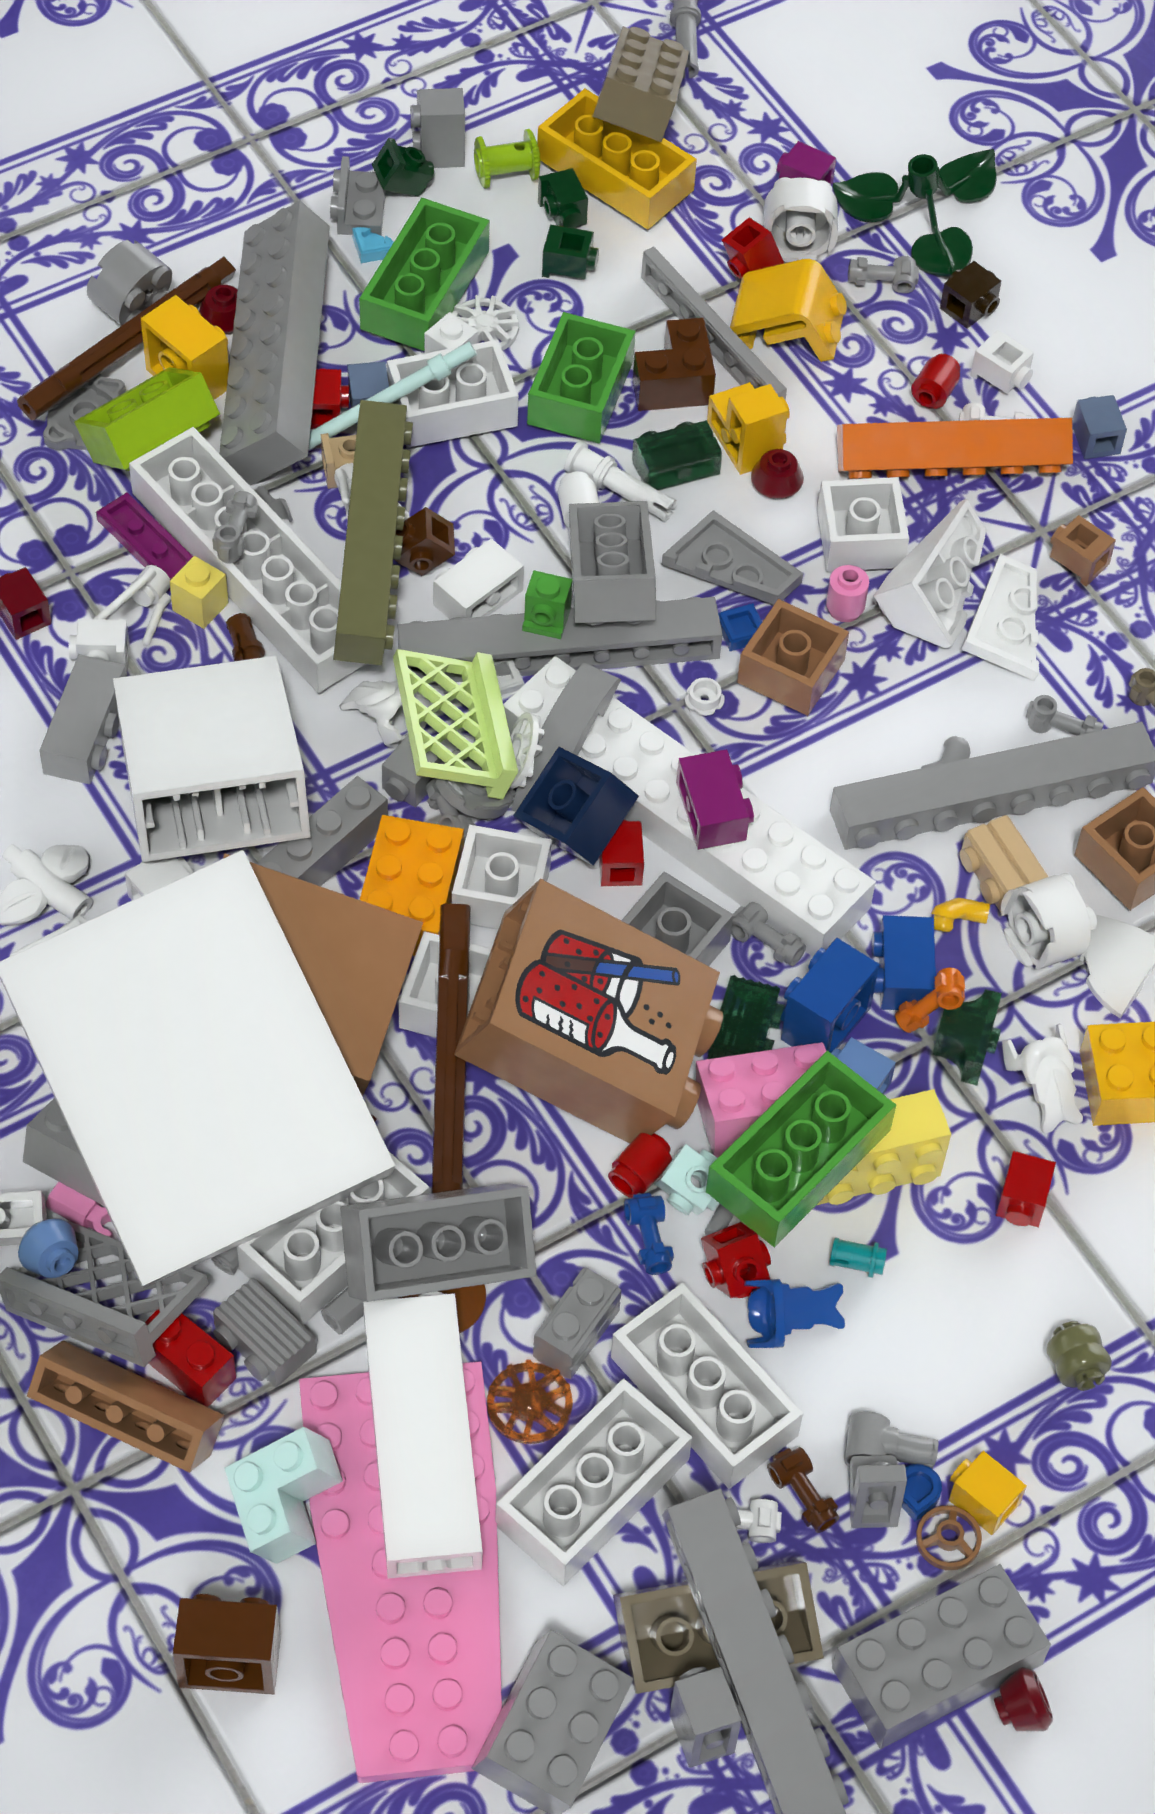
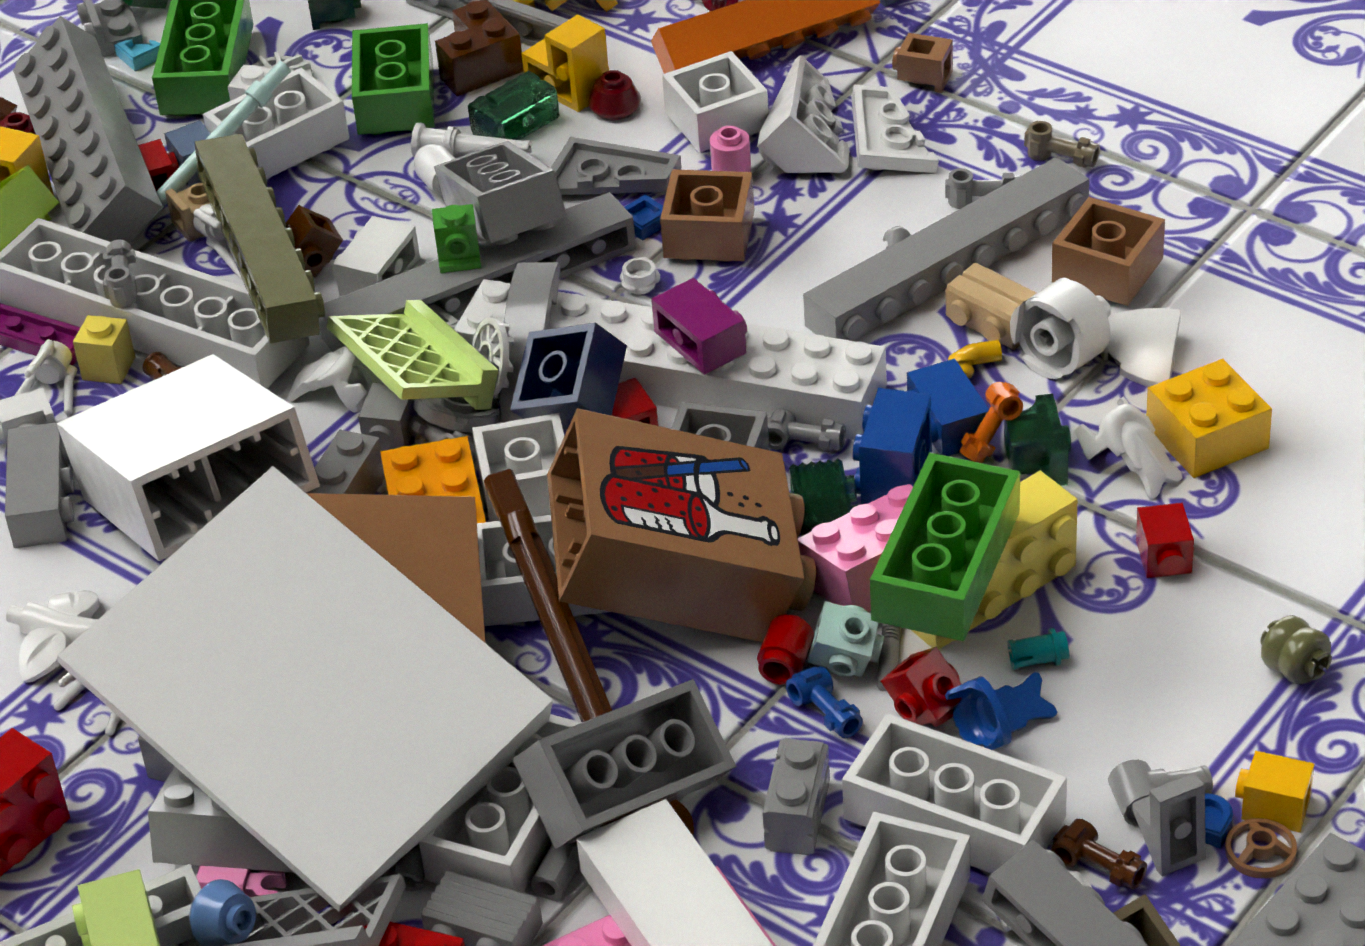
camera: 15 degrees left, 15 degrees down
(529, 1402) = (784, 885): clear orange wheel -> none

